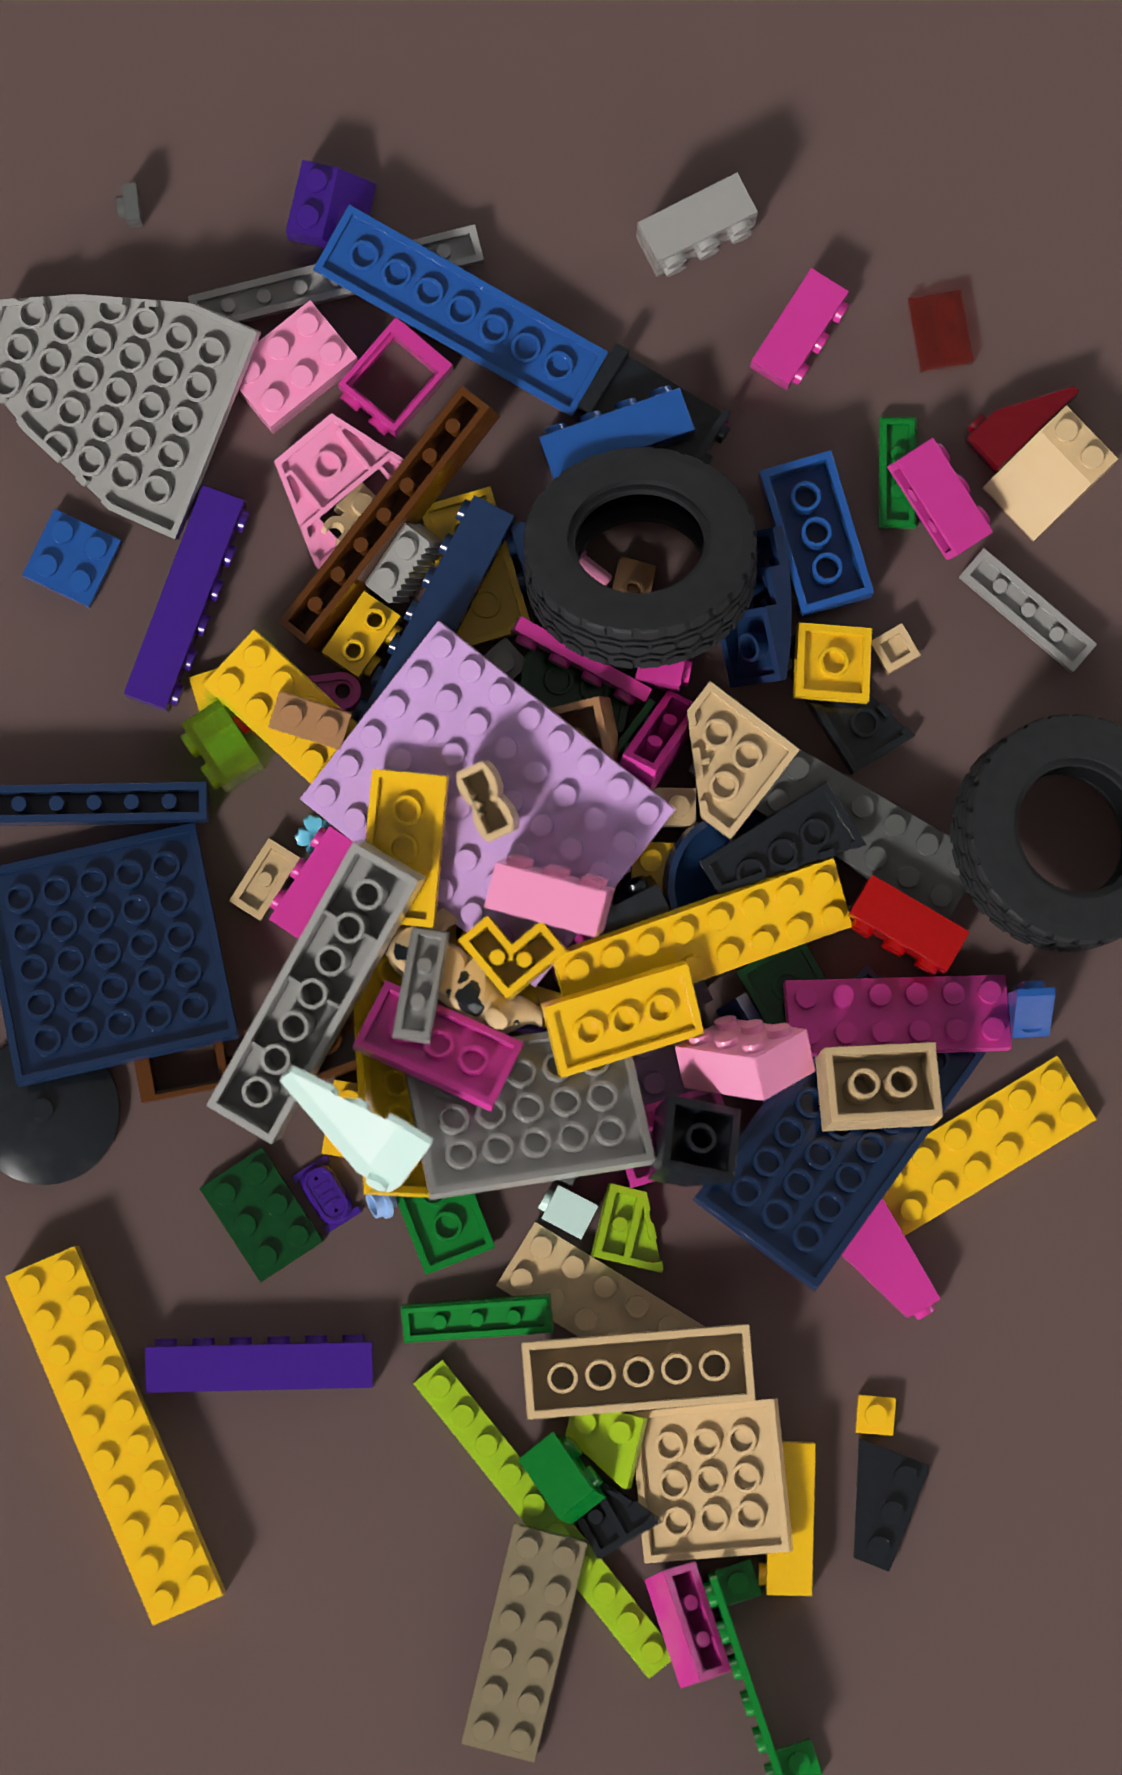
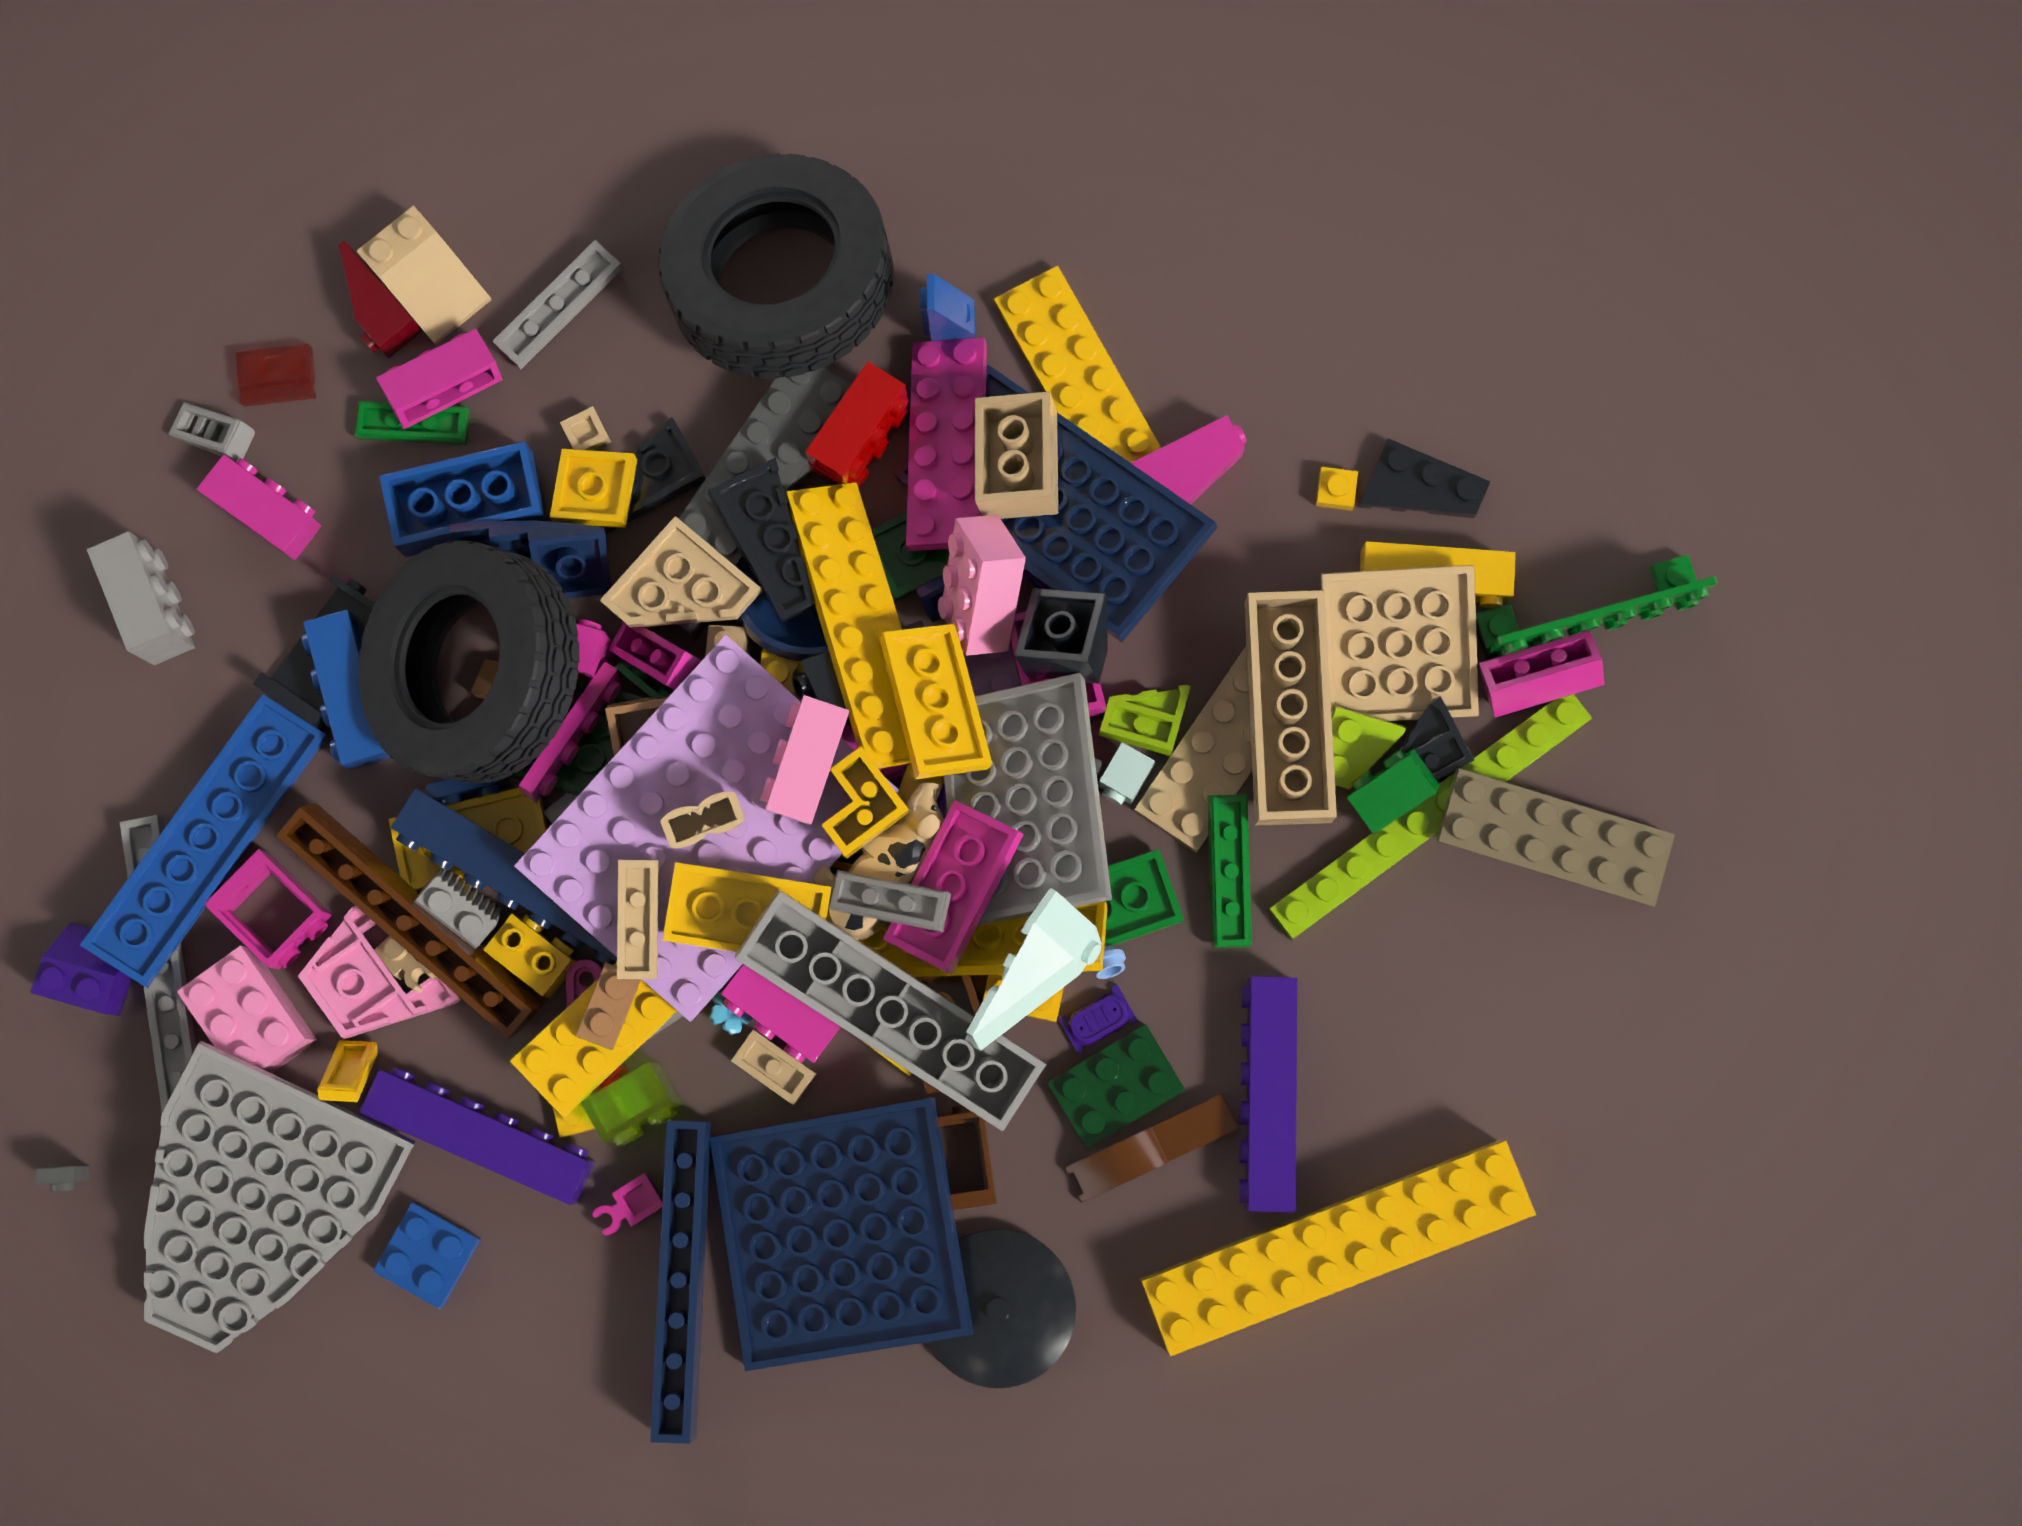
camera: 85 degrees left, 5 degrees down
(130, 753) = (634, 1202): none -> dark pink plate
(203, 1253) = (1153, 1147): none -> reddish brown piece
(241, 470) = (348, 1071): none -> yellow tile
(391, 744) = (637, 919): none -> tan plate
(871, 294) = (232, 442): none -> light grey slope

